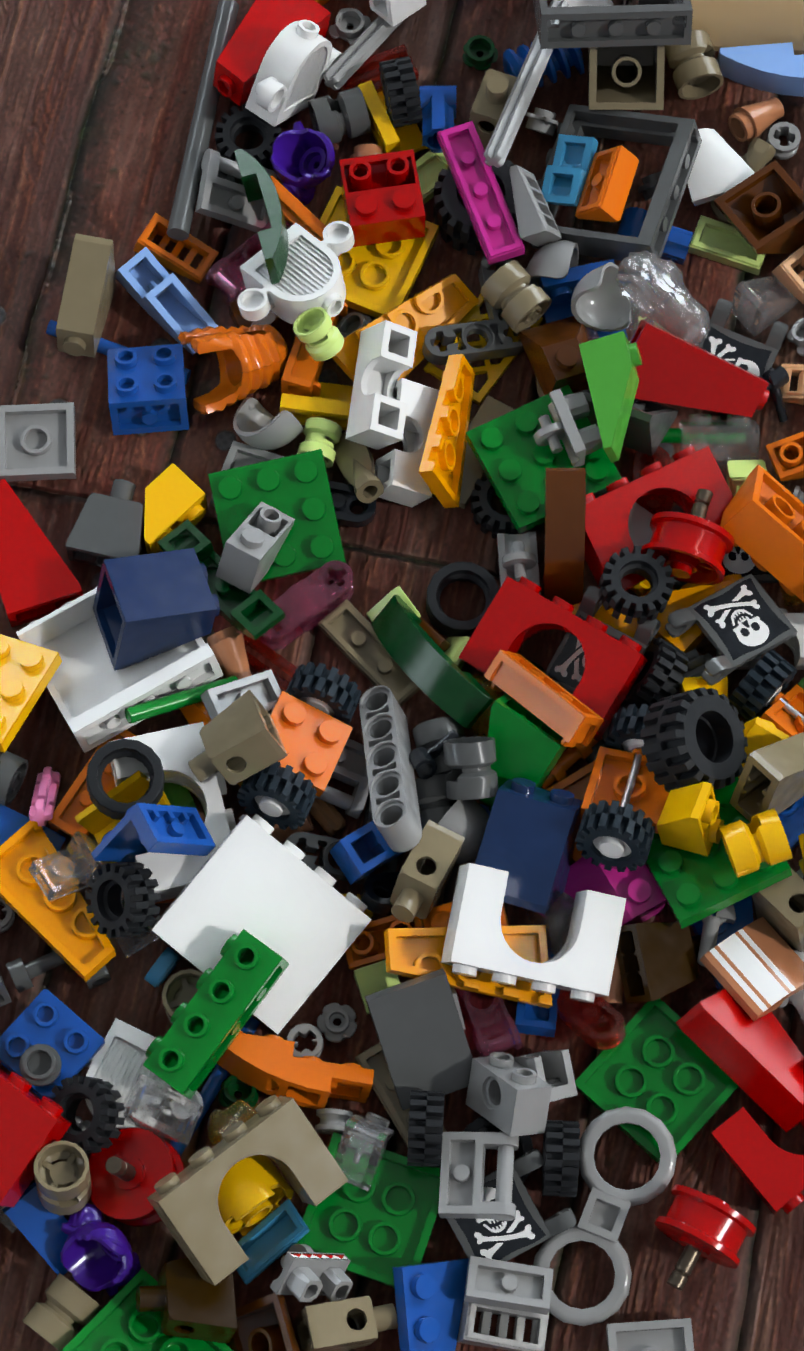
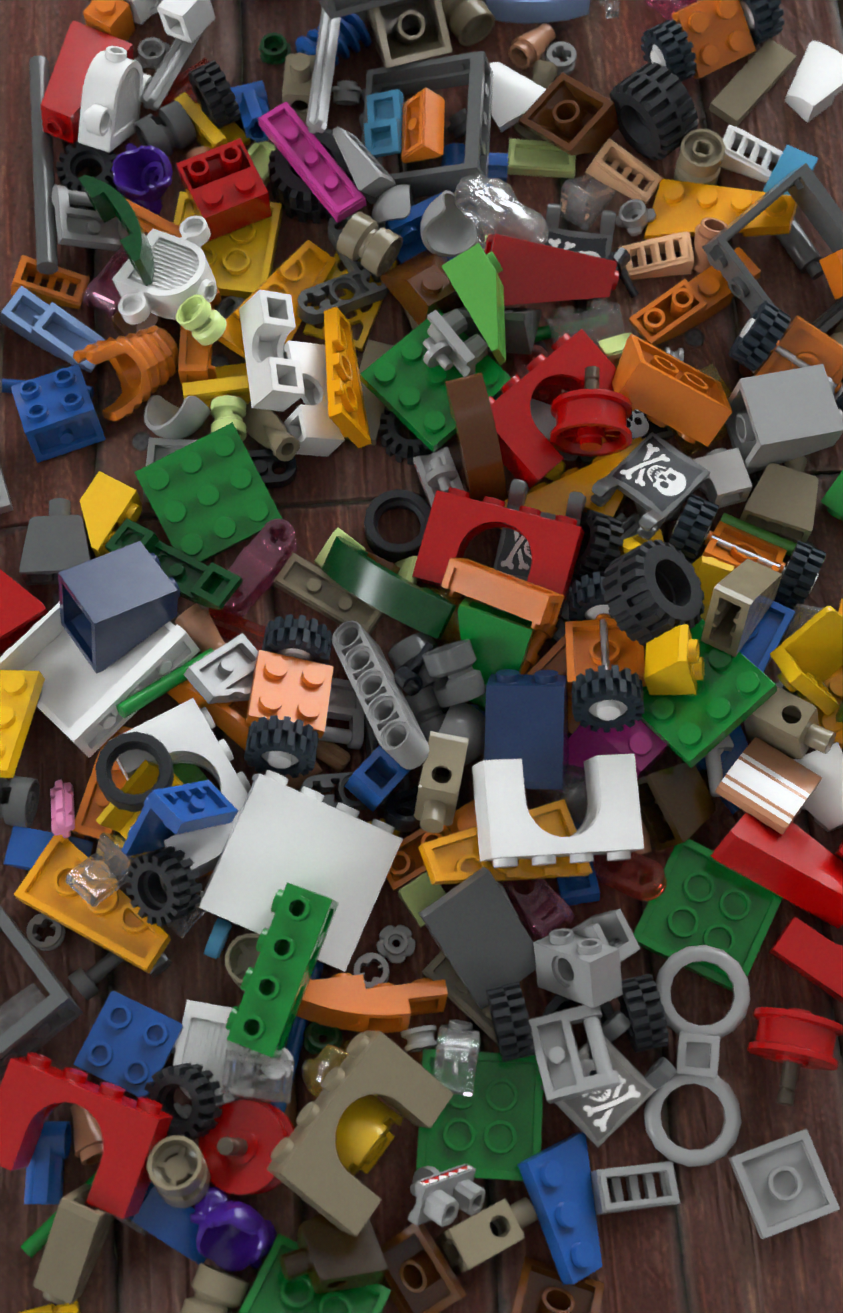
camera: 15 degrees left, 0 degrees up
(40, 1065) = (127, 1067): dark grey plate -> none
(238, 742) = (232, 707): dark tan torso -> none
(254, 547) = (195, 526): light grey slope -> none
(271, 1240) = (394, 1169): dark azure tile -> none
(508, 1285) = (630, 1148): light grey plate -> none
(642, 565) = (561, 449): black tyre -> none
(755, 842) = (740, 669): yellow wheel -> none

